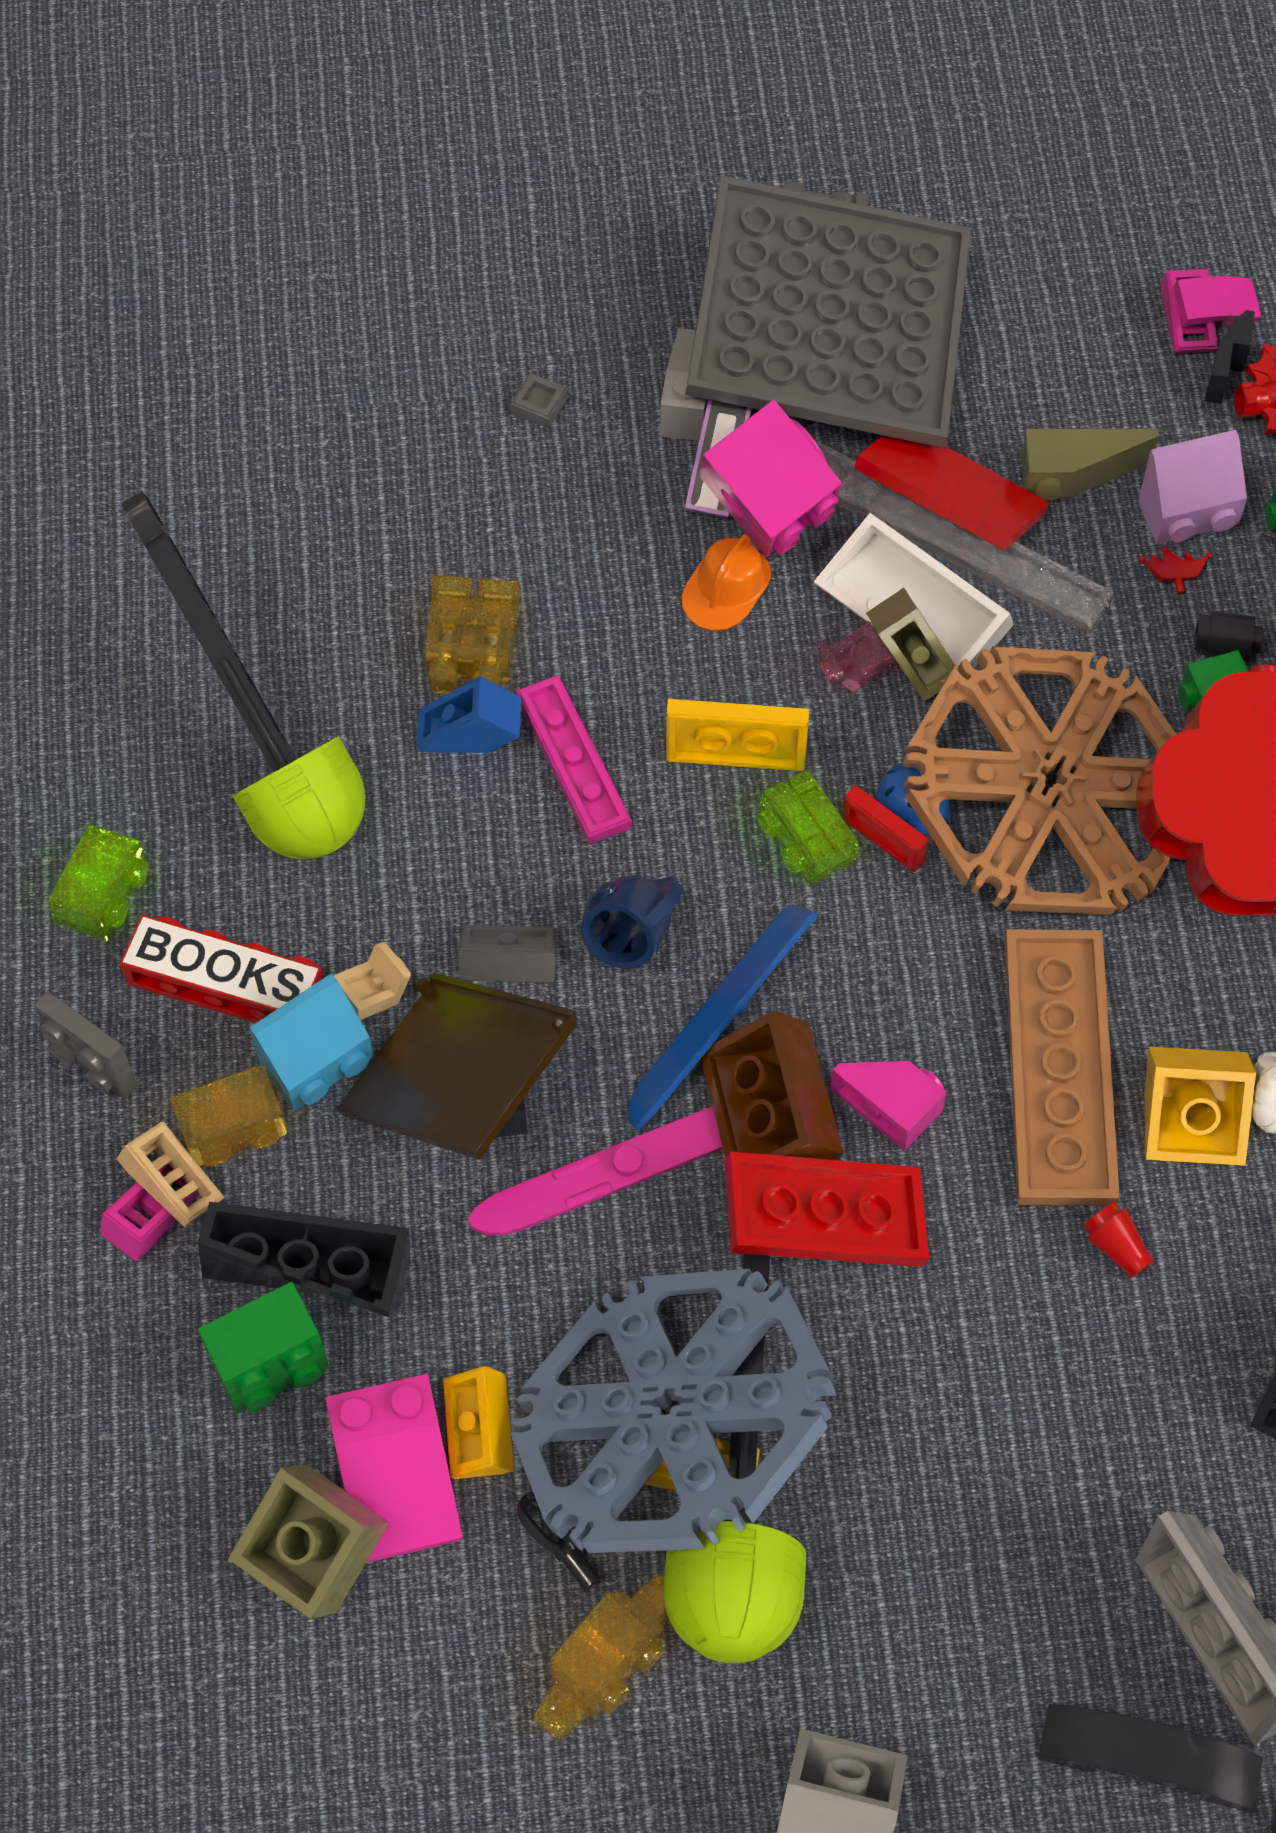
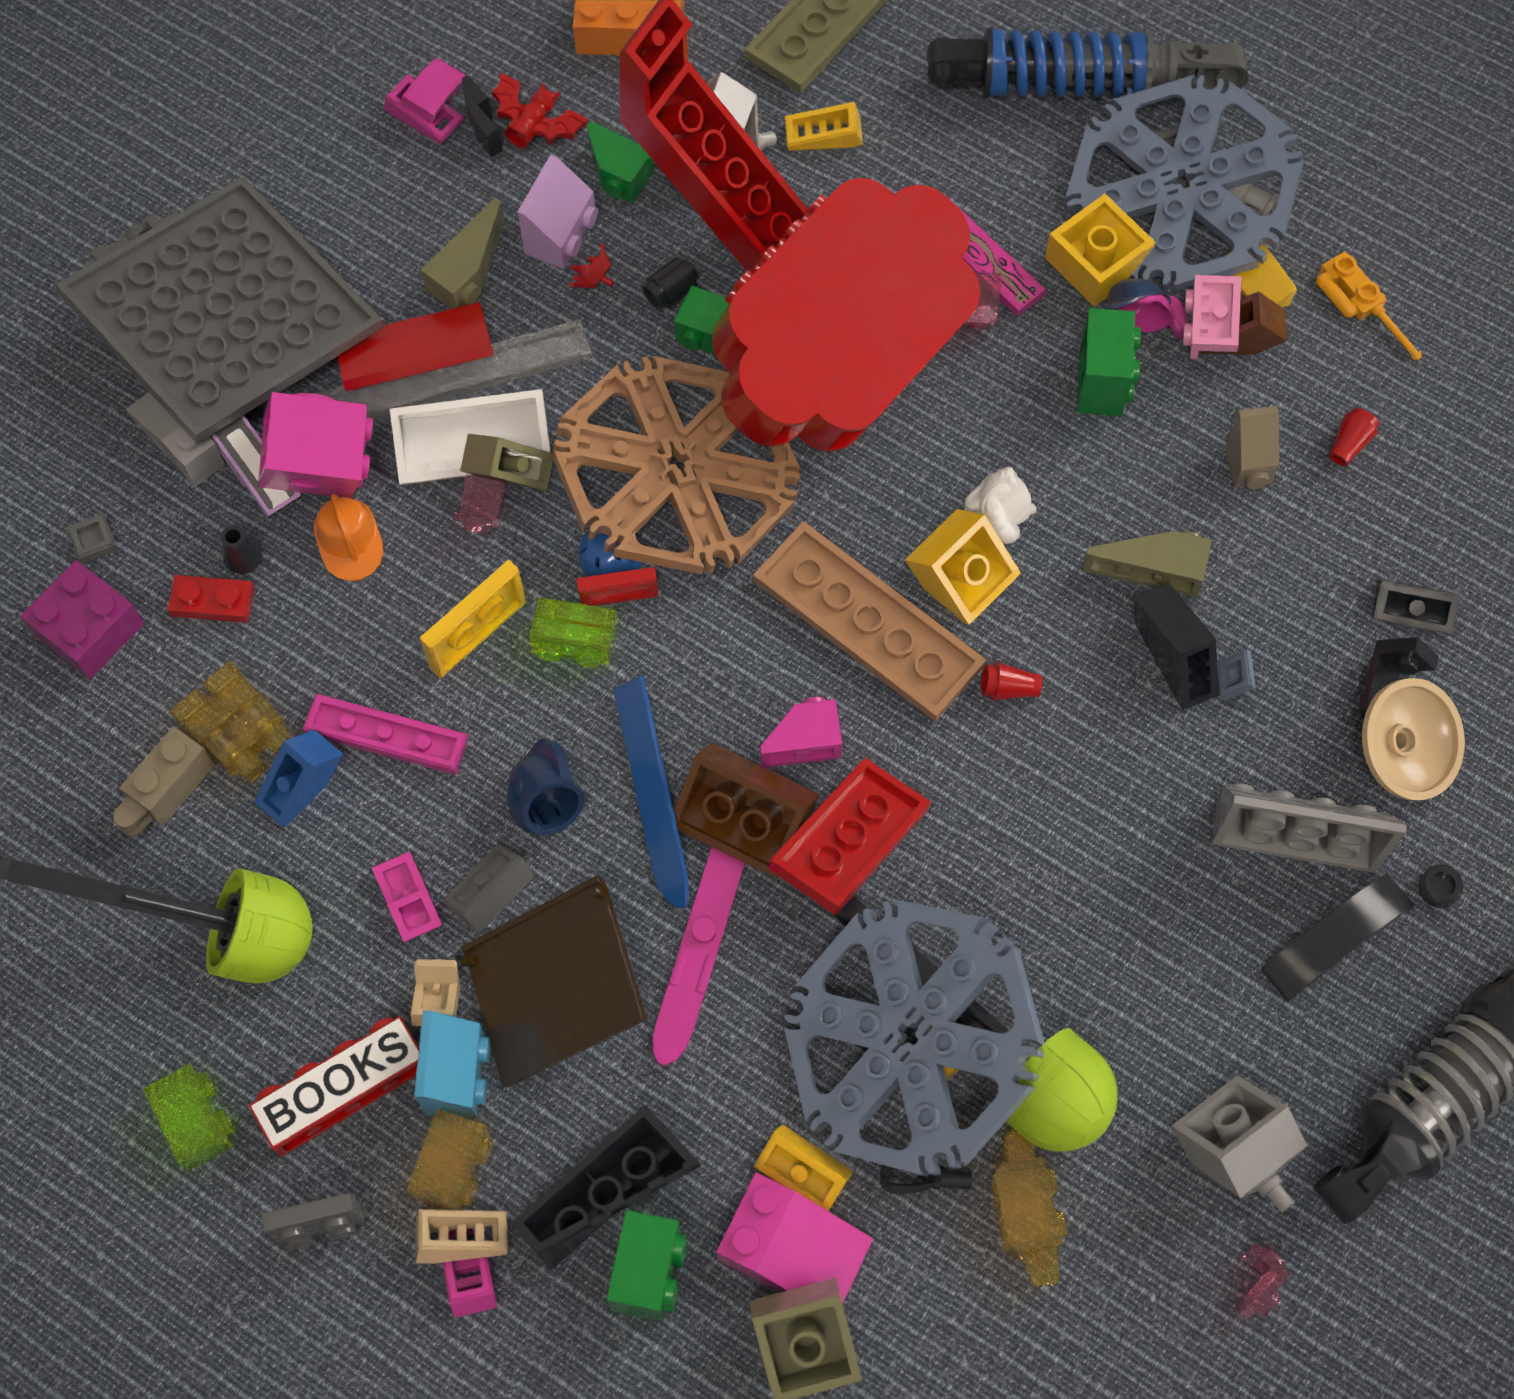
camera: 50 degrees left, 5 degrees up
(368, 624) = (162, 782): none -> dark tan brick
(440, 894) = (406, 897): none -> dark pink slope
(457, 450) = (82, 619): none -> magenta brick
(570, 529) = (211, 598): none -> red plate
(630, 512) = (239, 551): none -> black cone

